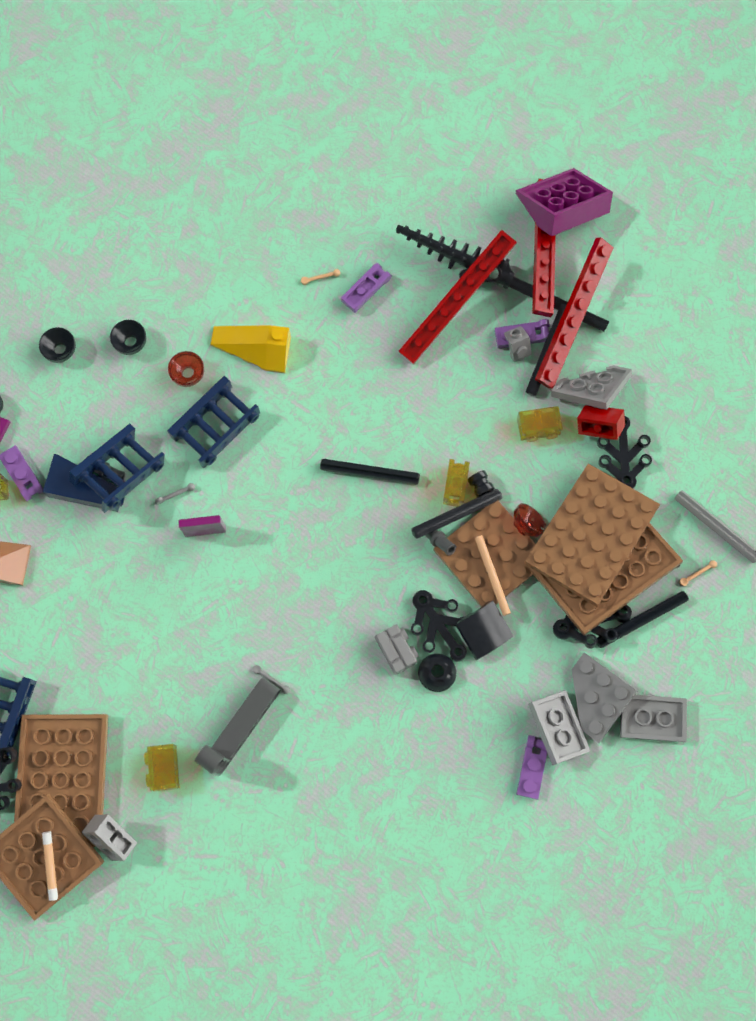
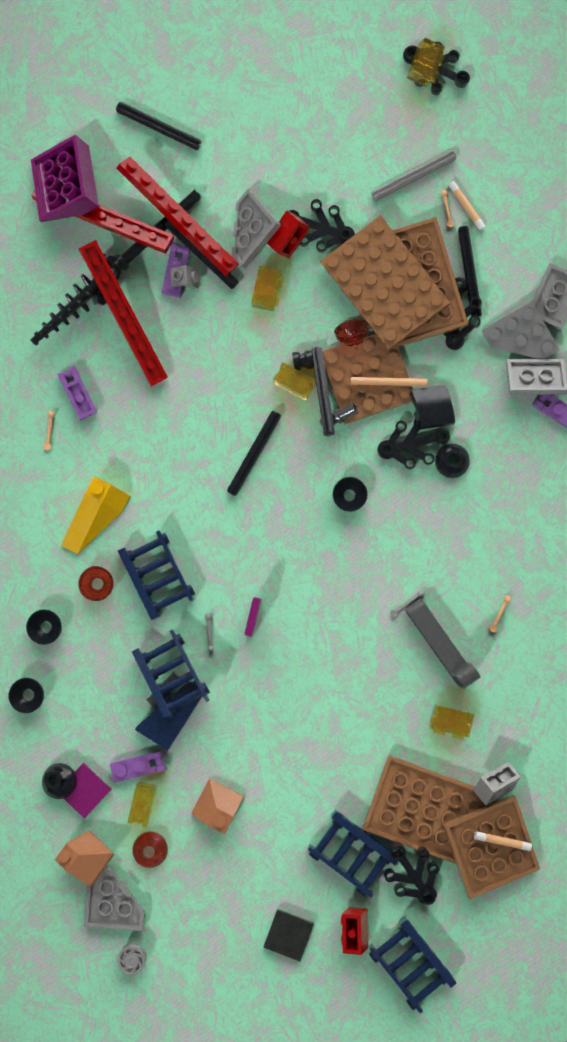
camera: 70 degrees left, 10 degrees up
(276, 779) = (507, 599): none -> light nougat hinge
(358, 568) = (357, 487): none -> black piece
(396, 649) = (421, 487): light grey brick -> none
(657, 268) = (158, 125): none -> black axle
(710, 591) = (466, 205): none -> light nougat bar

